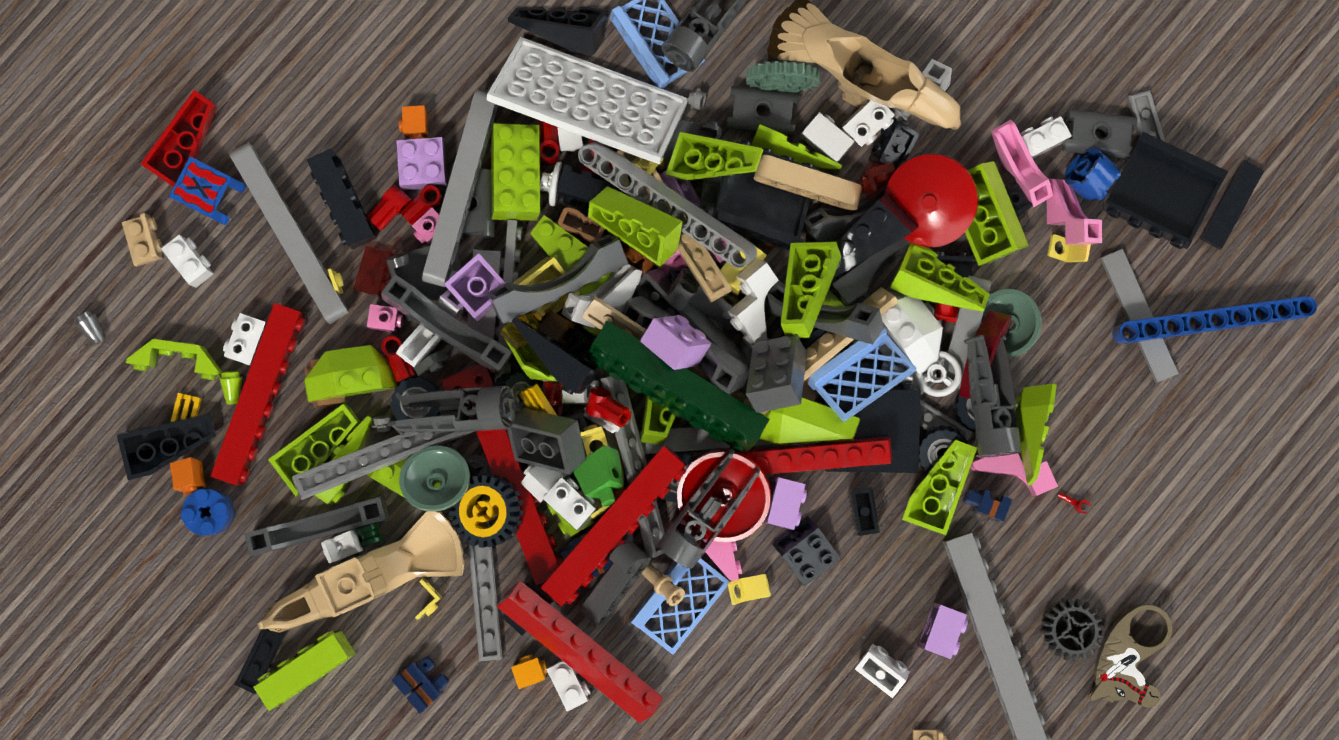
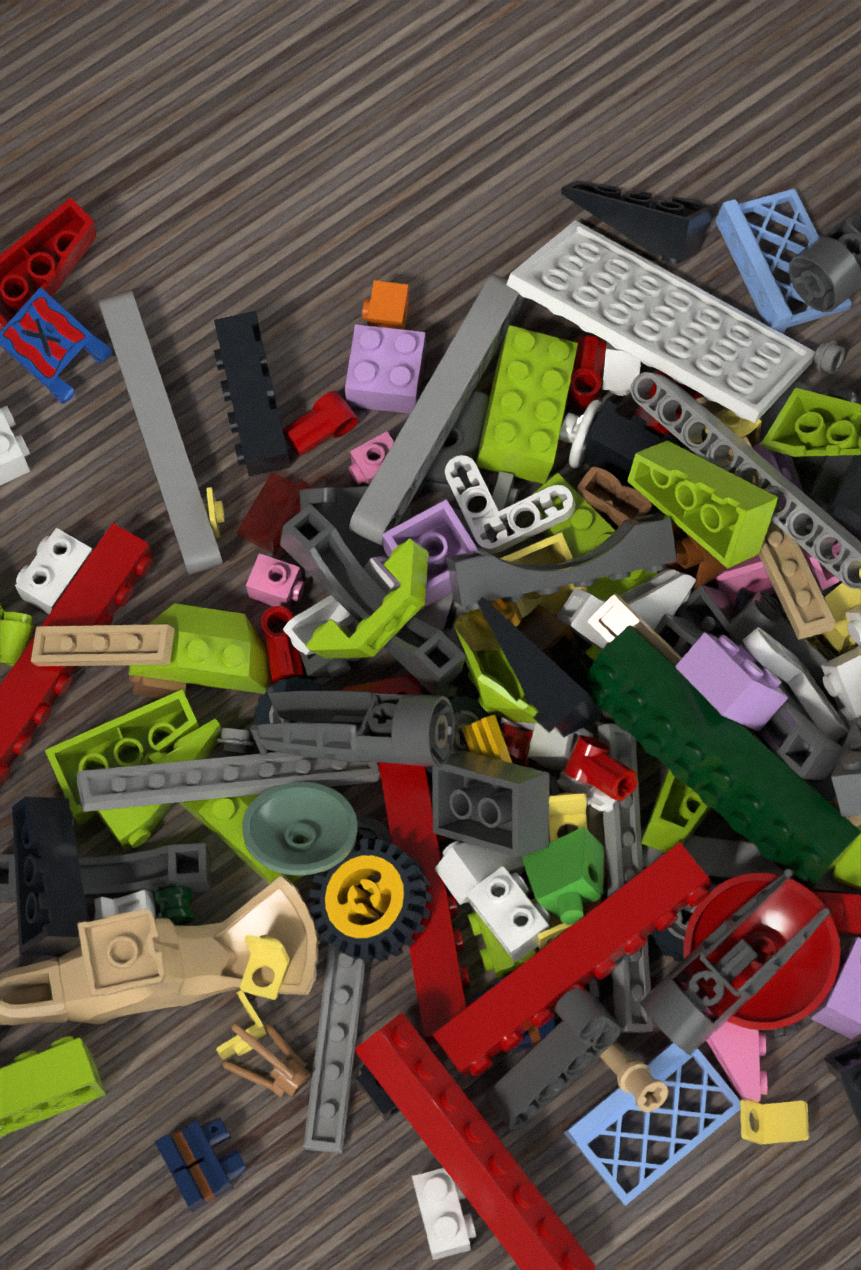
camera: 20 degrees right, 15 degrees down
(287, 388) = (103, 645): none -> tan plate
(289, 538) = (47, 877): none -> black wedge
(420, 204) = (371, 425): red piece -> none
(432, 556) = (265, 953): none -> light yellow bracket
(460, 621) = (288, 1075): none -> medium nougat plant
(465, 307) = (409, 566): none -> lime slope
(510, 253) = (493, 518): none -> white beam
(529, 671) = (383, 1179): light orange brick -> none
(707, 316) = (791, 670): none -> white beam

